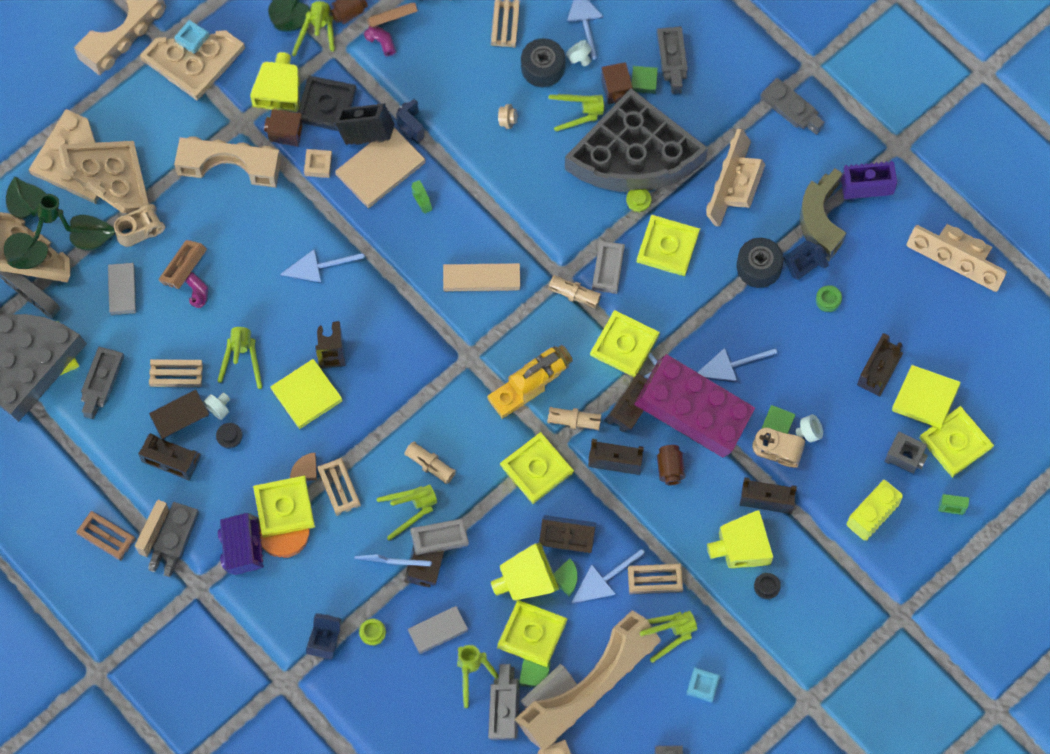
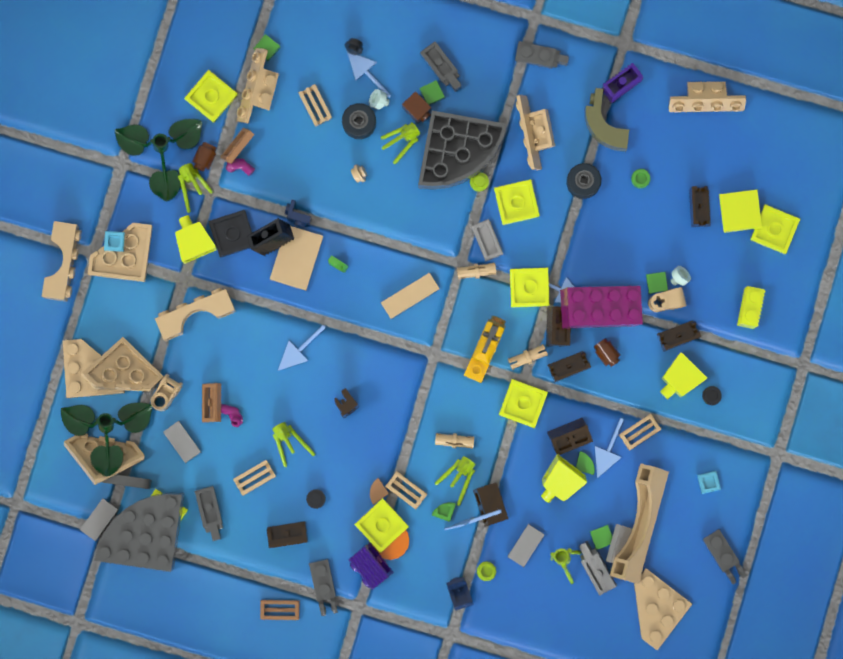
camera: 30 degrees left, 15 degrees up
(152, 528) = (307, 589): tan tile -> none
(178, 414) = (276, 505): dark brown hinge -> none
(217, 405) = (296, 483): light aqua tile -> none
(284, 127) = (216, 268): reddish brown brick -> none
(306, 394) = (346, 441): neon yellow tile -> none
(318, 163) = (254, 279): tan tile -> none
(368, 536) = (444, 511): none -> bright green tile
(439, 537) = (493, 488): light grey tile -> none
(532, 633) = (586, 513): neon yellow tile -> none
(679, 622) = (675, 452): lime plant -> none
(721, 368) = (598, 266): light blue piece -> none
(805, 258) = (611, 160): dark blue bracket -> none
(907, 445) = (742, 253): dark grey brick -> none
(953, 504) = (797, 274): bright green tile -> none

